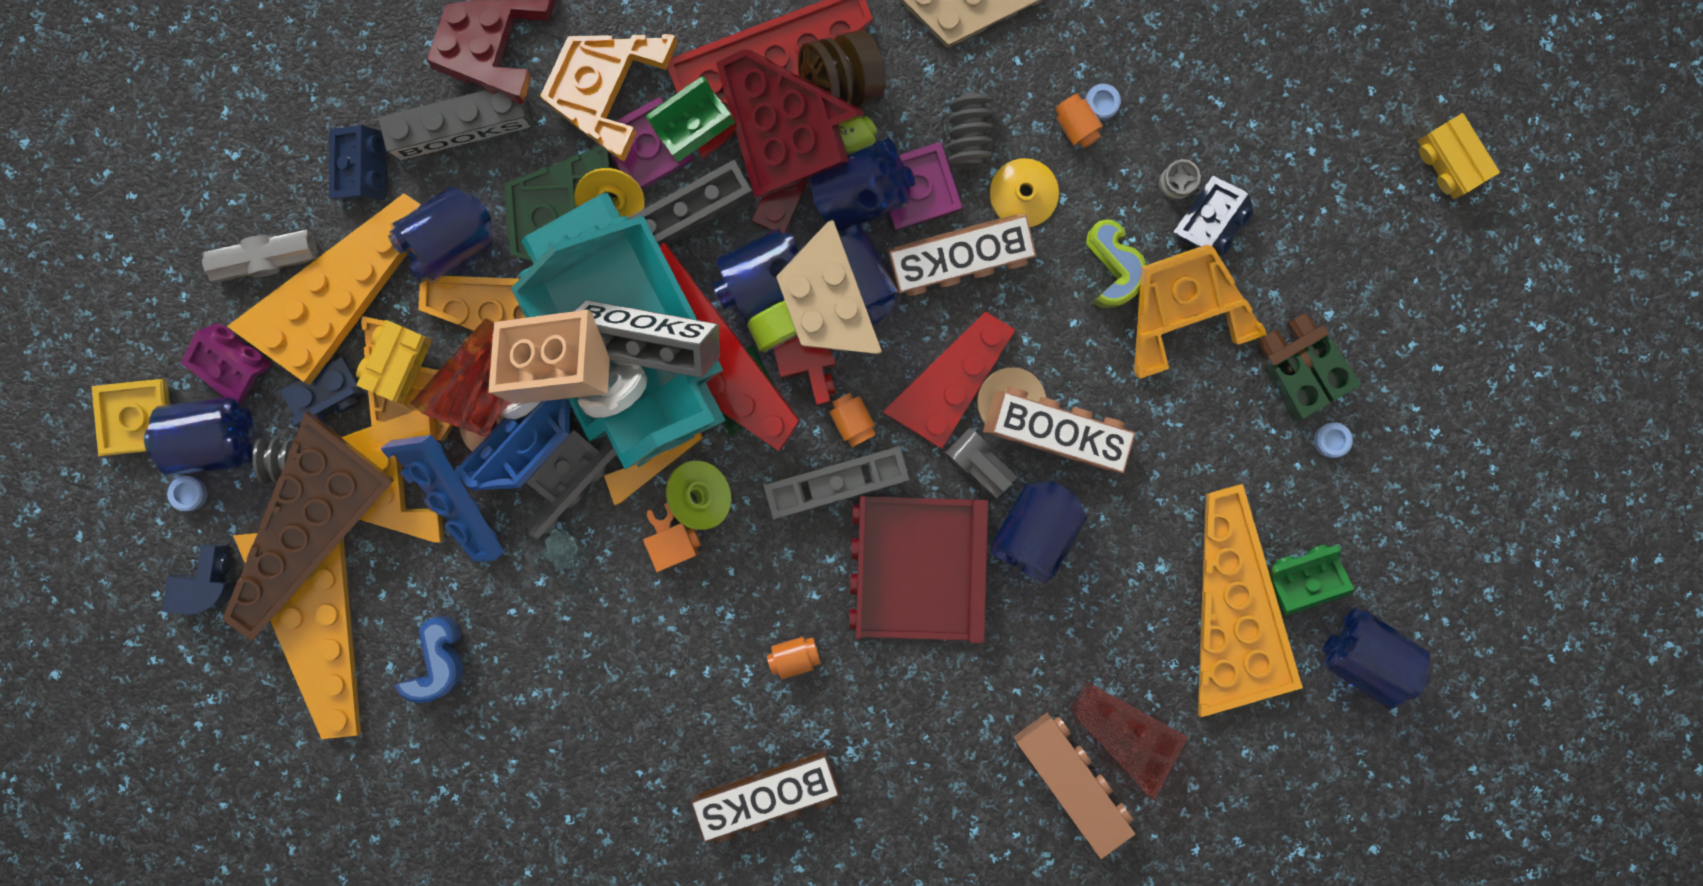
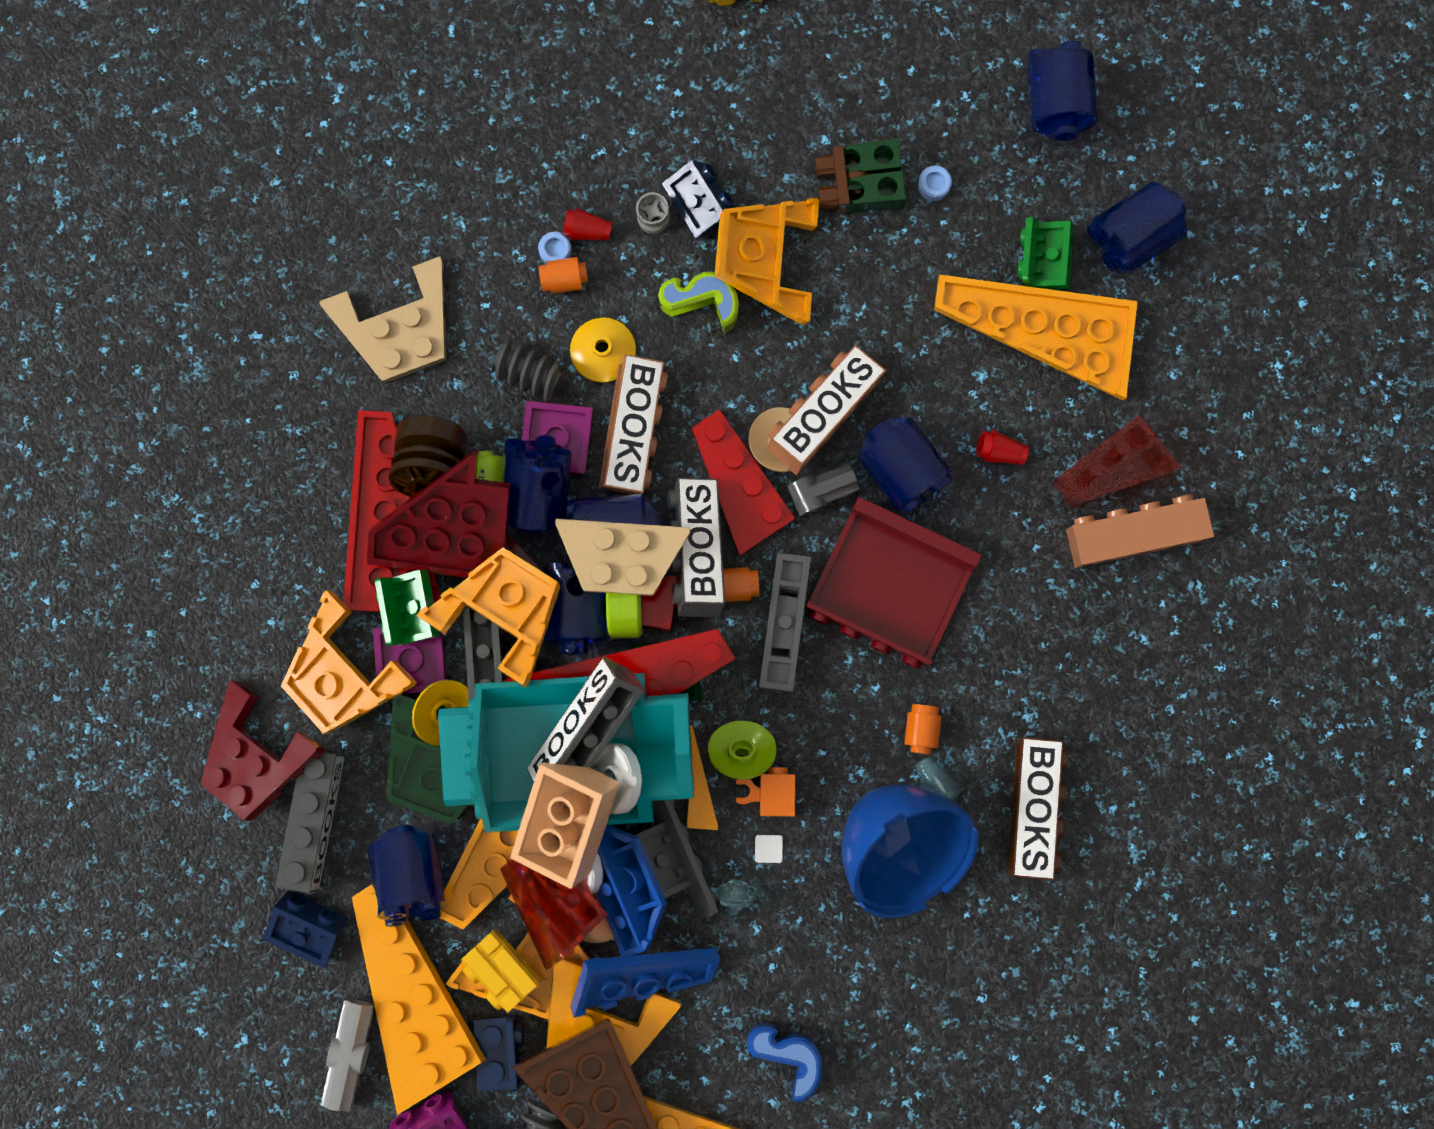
camera: 60 degrees left, 5 degrees down
(619, 560) = (768, 848): none -> white sticker
(669, 688) = (905, 848): none -> blue piece
(740, 213) = (511, 597): none -> light orange wing
(748, 692) = (935, 778): none -> clear light blue cone
(860, 374) = (699, 561): none -> brick
(1097, 616) = (1000, 449): none -> red cone
(1137, 121) = (585, 226): none -> red cone
(1482, 525) = (1062, 91): none -> clear blue cylinder

